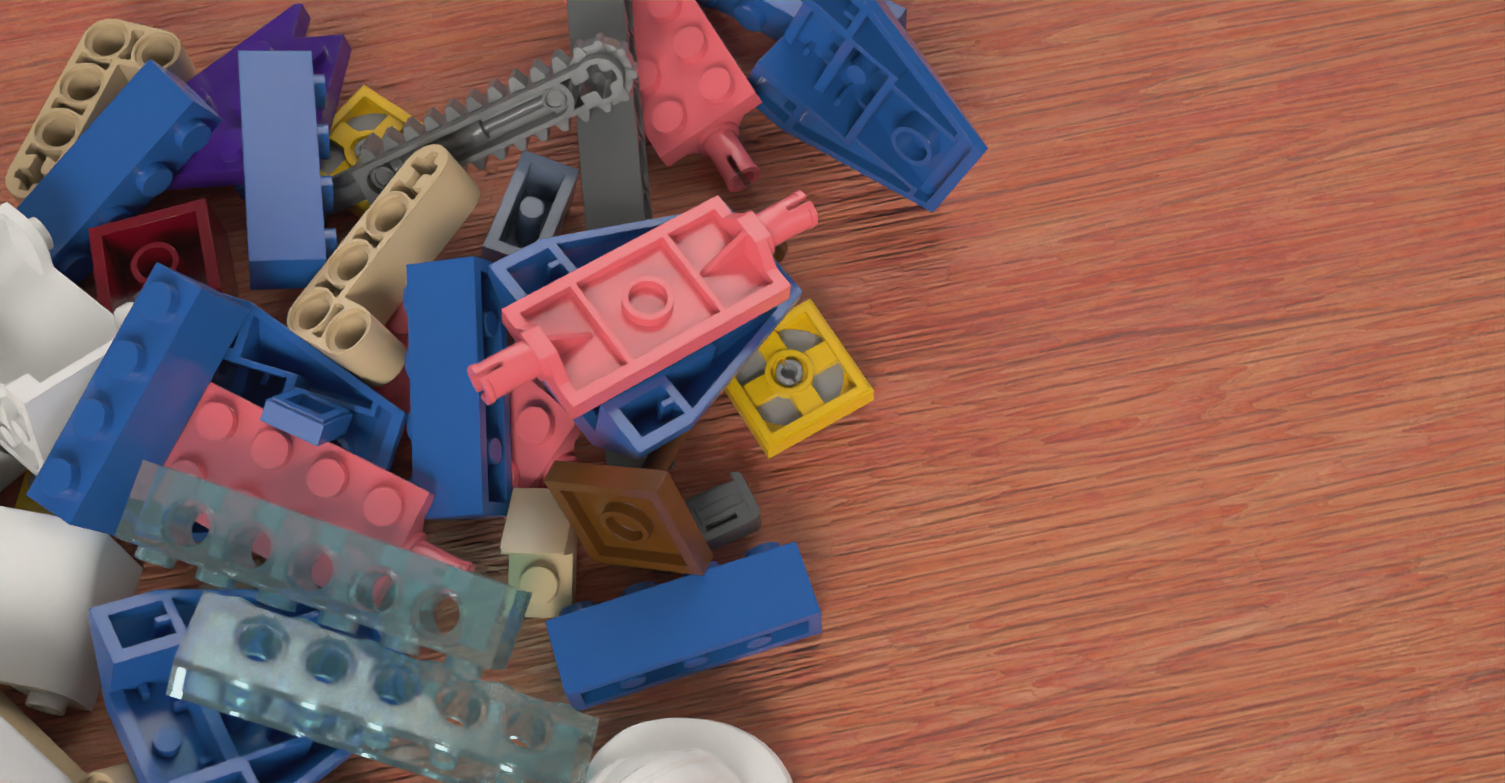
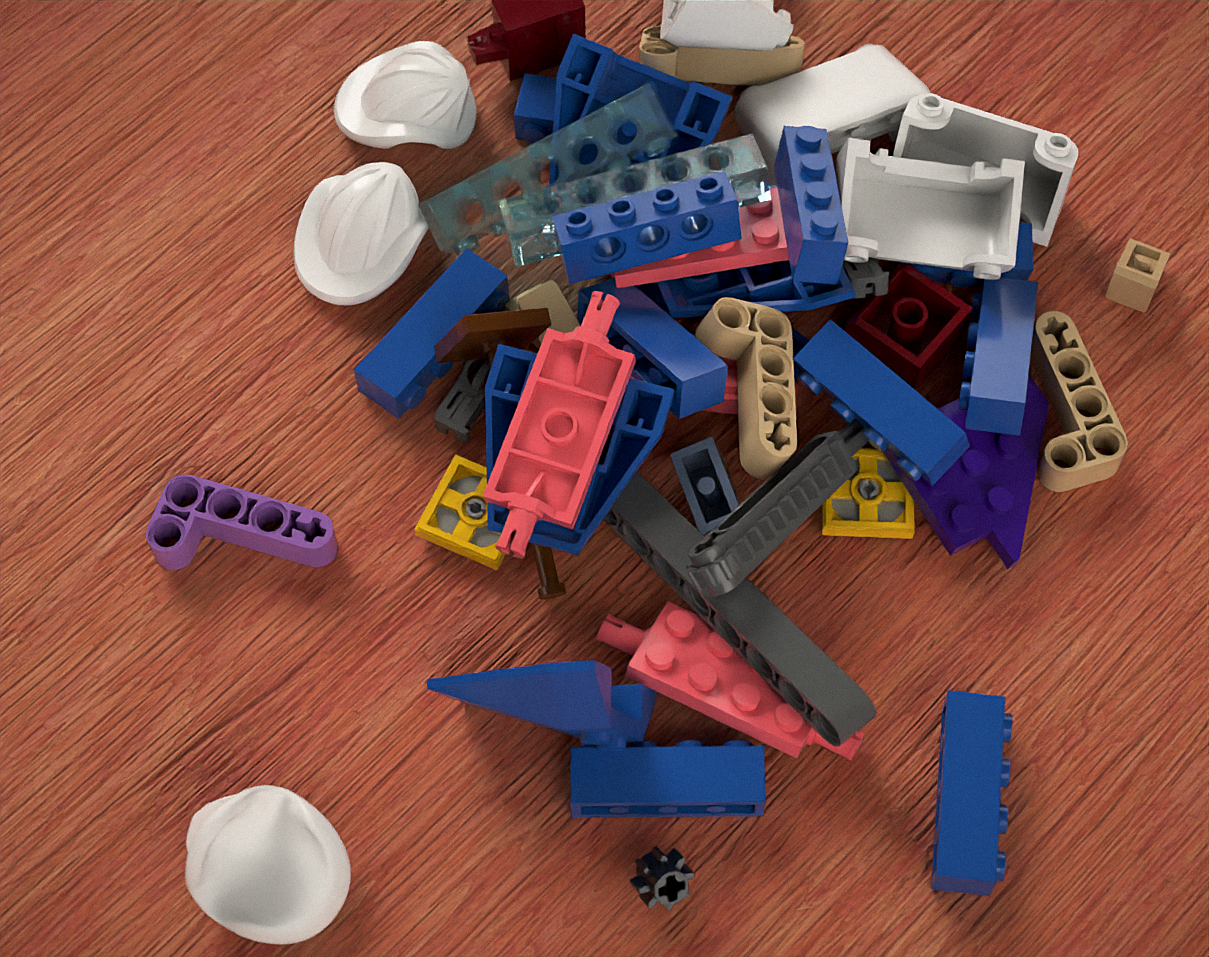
camera: 140 degrees right, 0 degrees up
(306, 416) = (715, 263): blue tile -> none
(344, 492) = (647, 227): none -> blue brick
(1074, 511) = (243, 530): none -> medium lavender beam
(1256, 128) = (267, 865): none -> white piece

